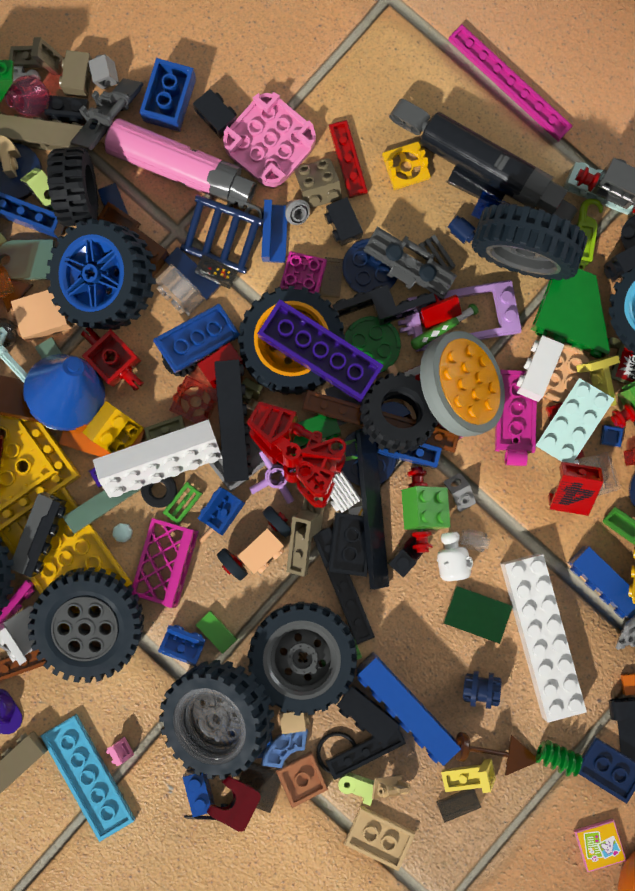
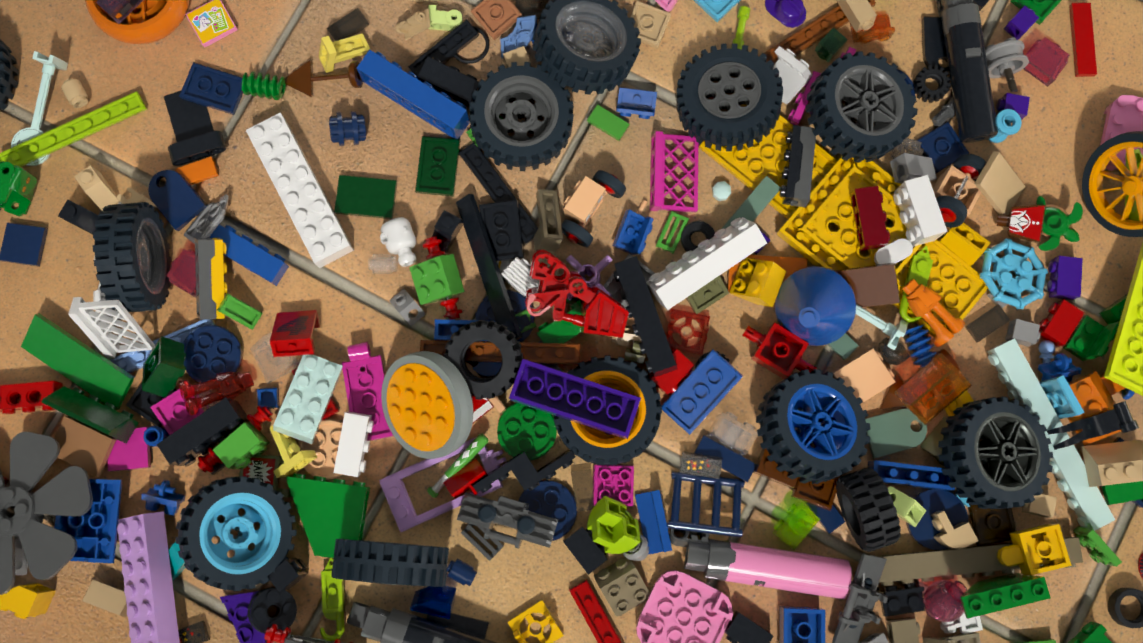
camera: 170 degrees right, 5 degrees down
(47, 714) = (743, 15): none -> lime bar
(144, 196) = (795, 525): none -> clear neon green brick
(145, 729) = (651, 23): none -> tan tile
(312, 234) = (613, 526): none -> lime brick
(398, 629) = (437, 166): none -> dark green tile

